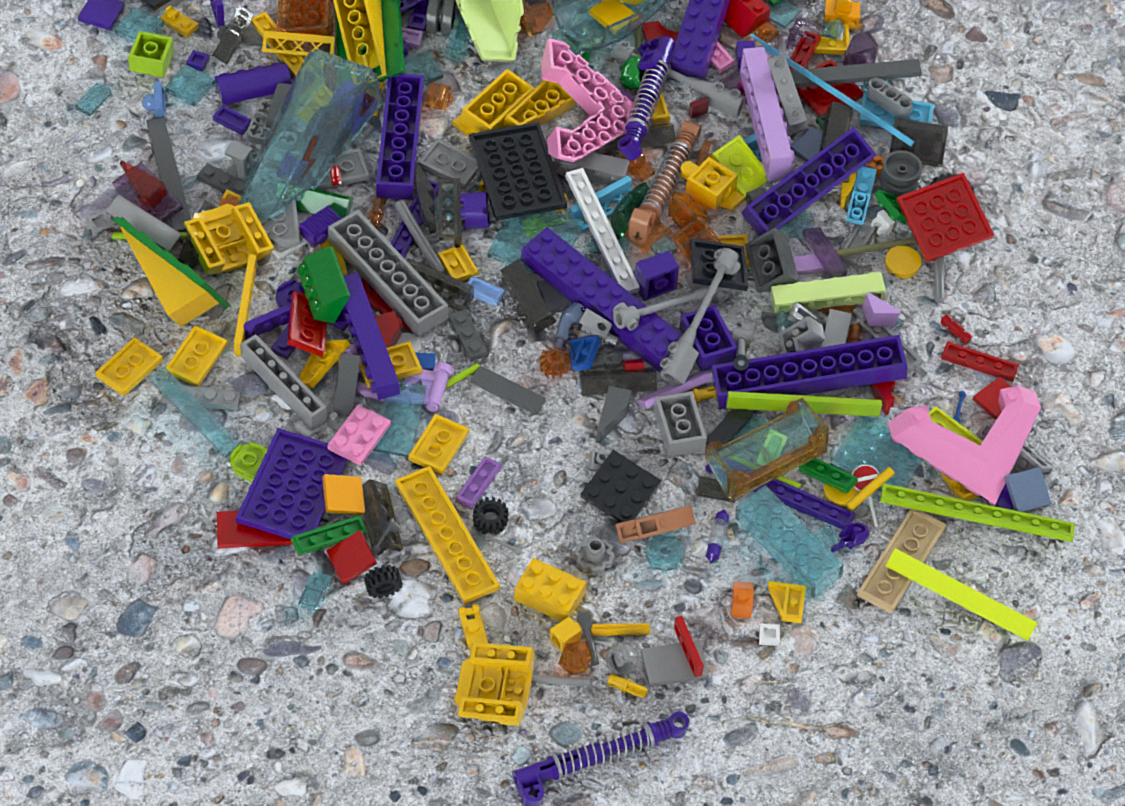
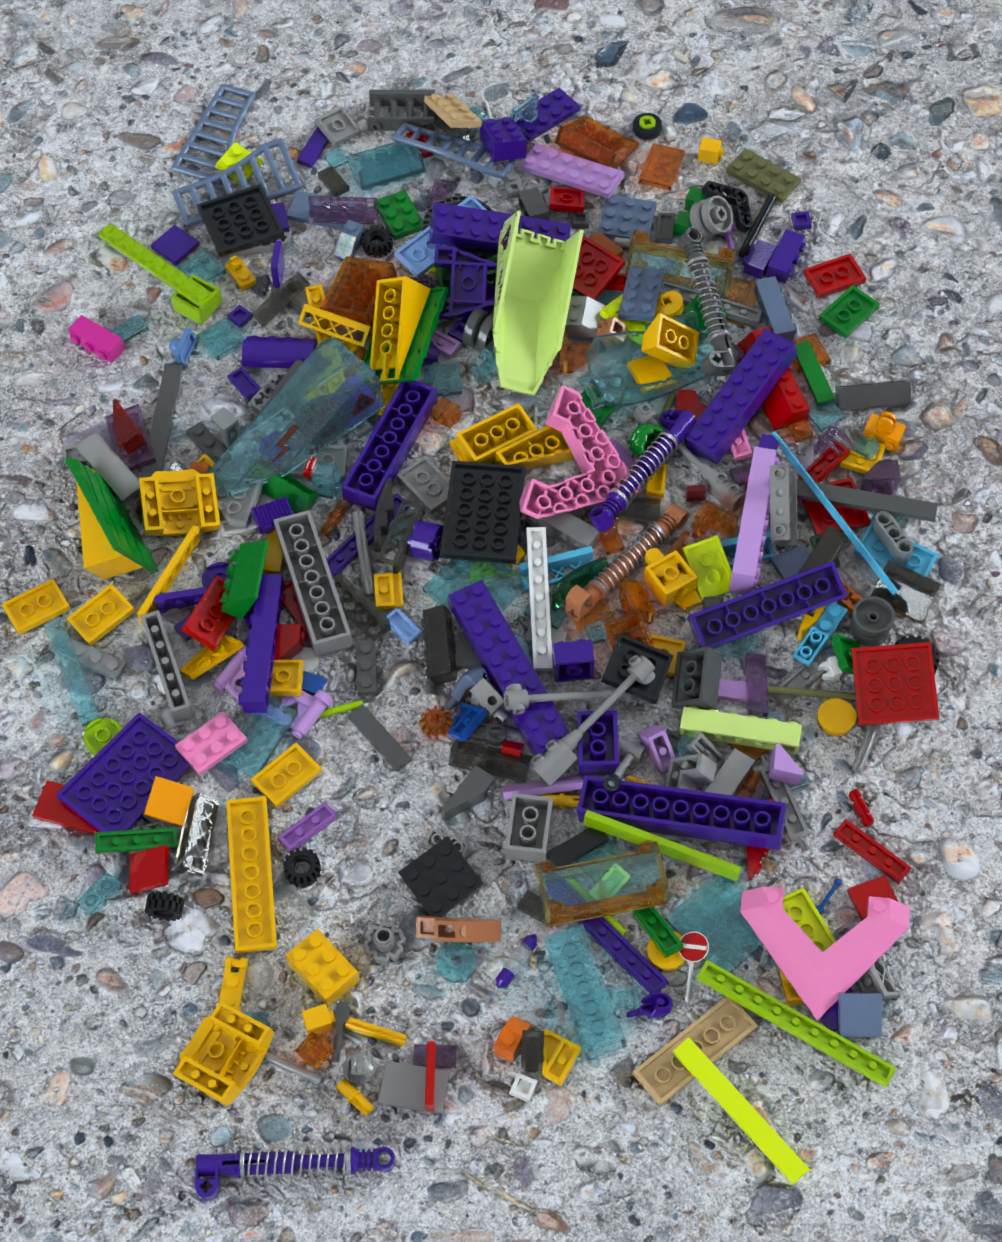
camera: 25 degrees right, 5 degrees up
(67, 115) = (96, 339): none -> dark pink brick
(98, 32) = (157, 266): none -> lime plate
(345, 384) = (221, 687): dark grey slope -> none
(357, 181) = (326, 479): none -> clear light blue brick
(649, 59) = (659, 431): dark purple tile -> none
(669, 636) = (445, 1055): none -> clear purple tile
(730, 124) = (714, 517): none -> clear orange bracket
(762, 327) = (657, 746): none -> lavender slope
(766, 599) = (532, 1050): none -> clear smoke slope
(870, 488) = (692, 960): yellow piece -> none

